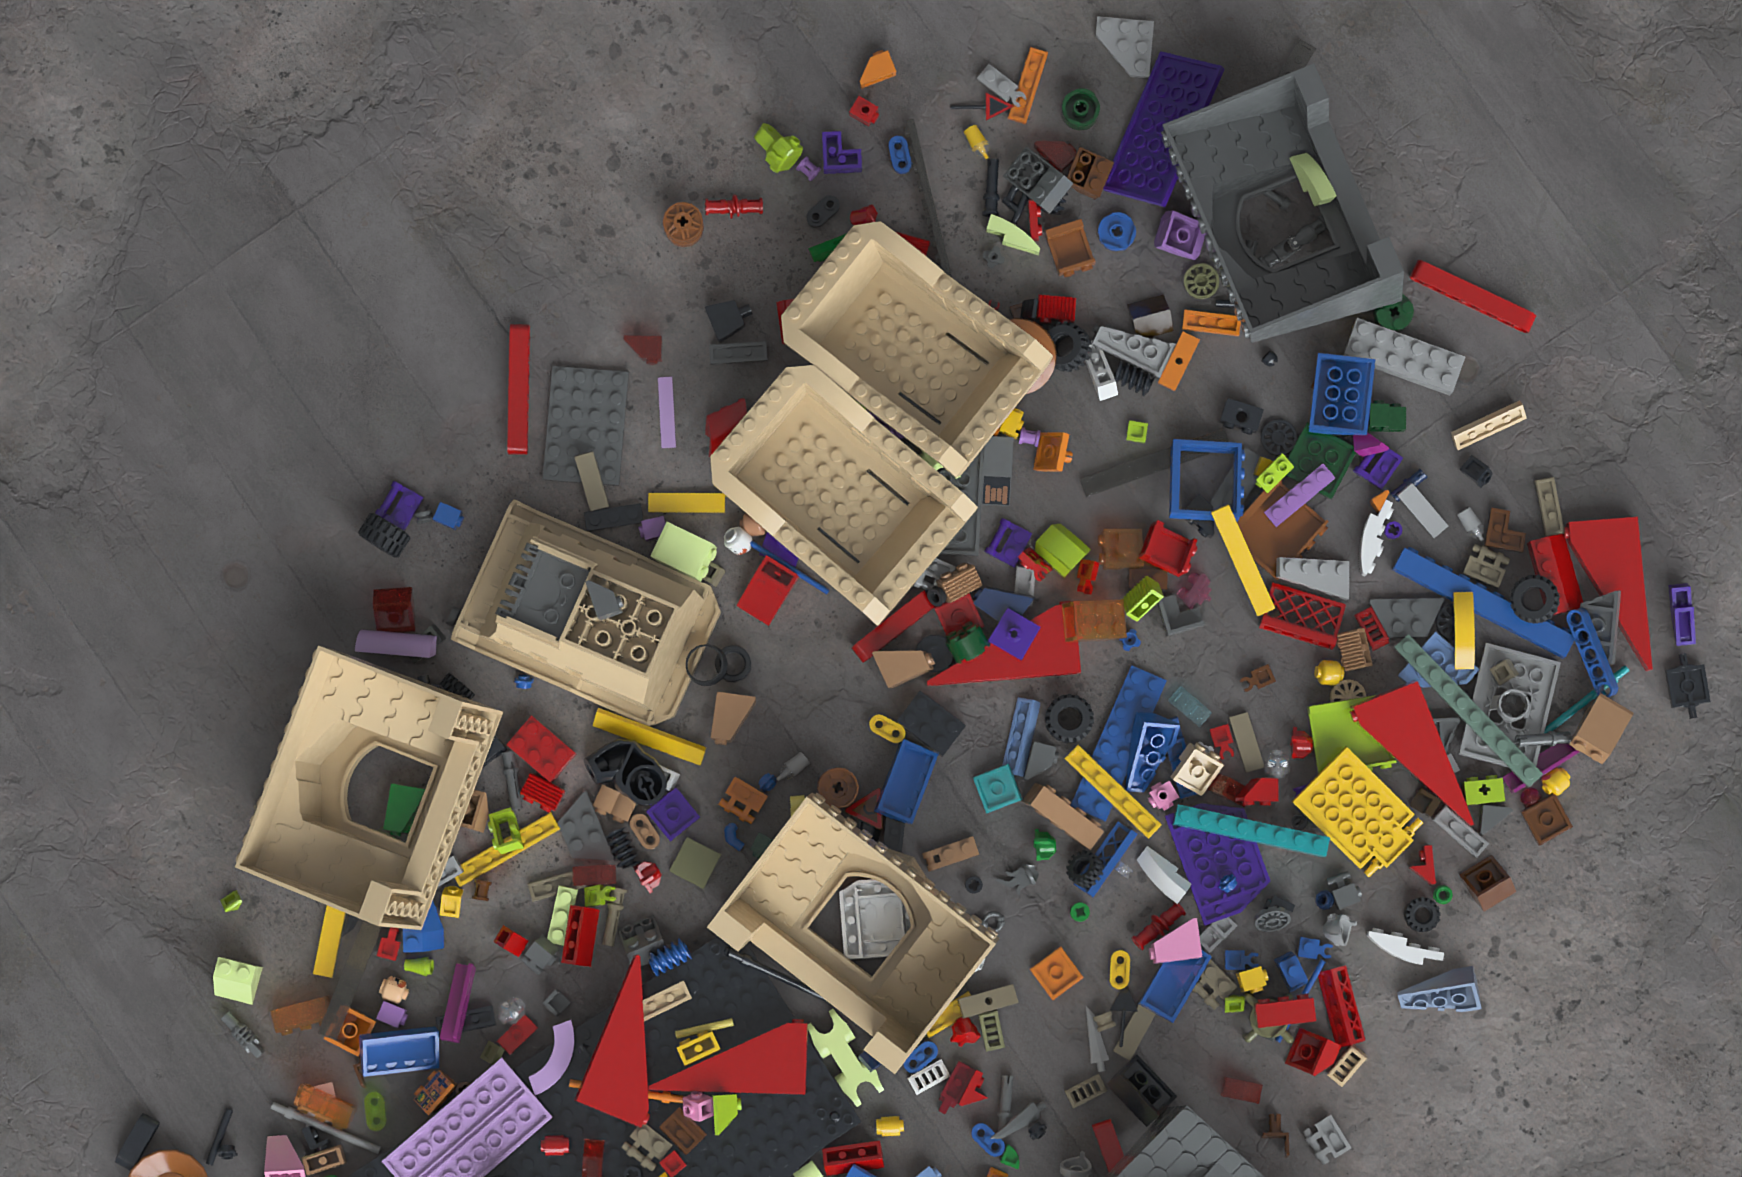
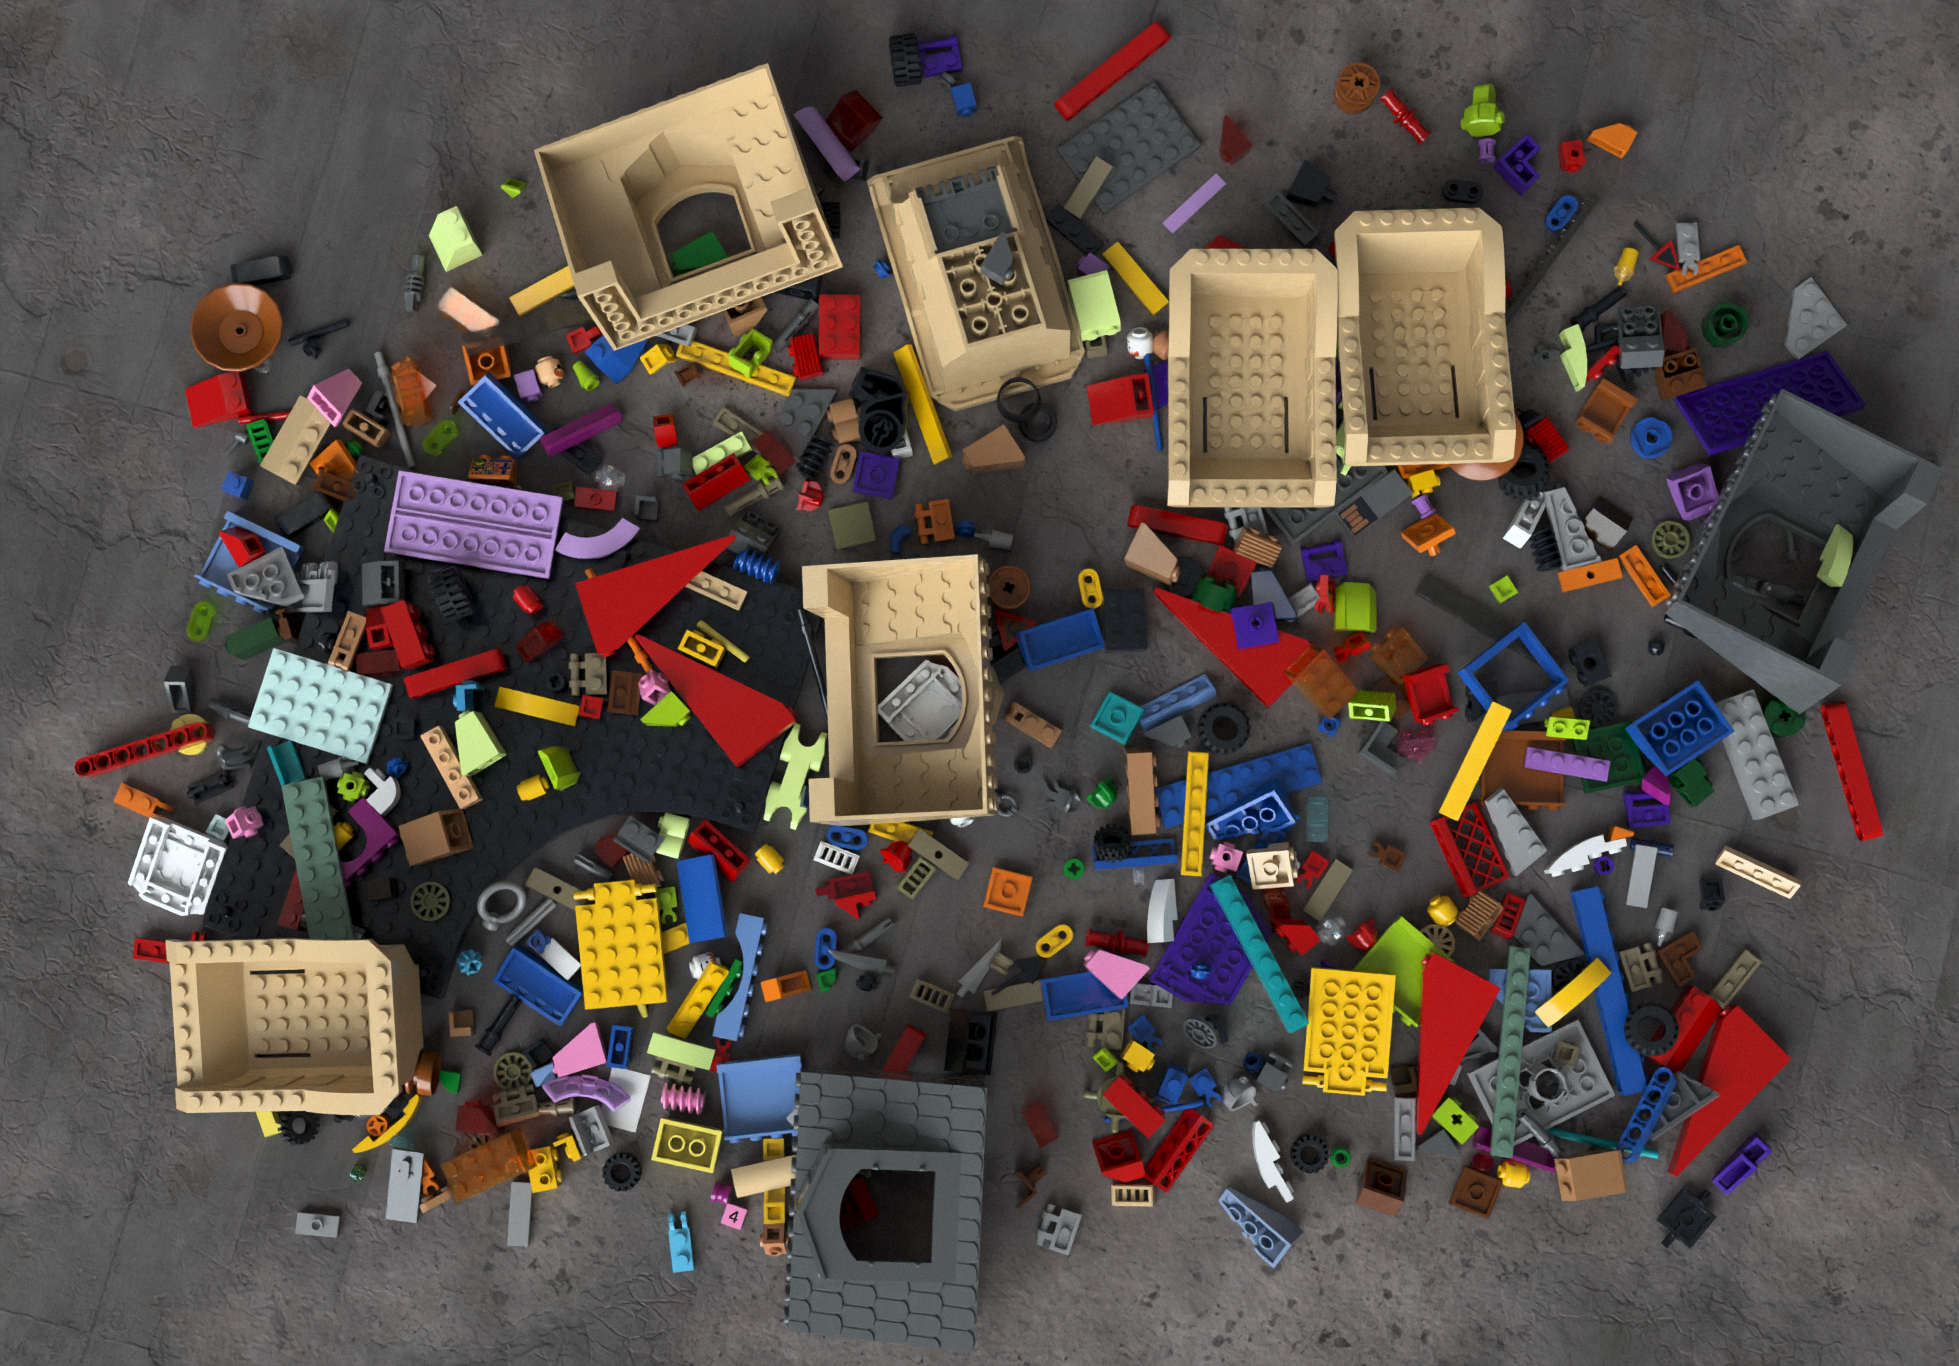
camera: 45 degrees right, 0 degrees up
(941, 594) = (1236, 539): black piece -> none
(1427, 870) = (1349, 1127): red slope -> none

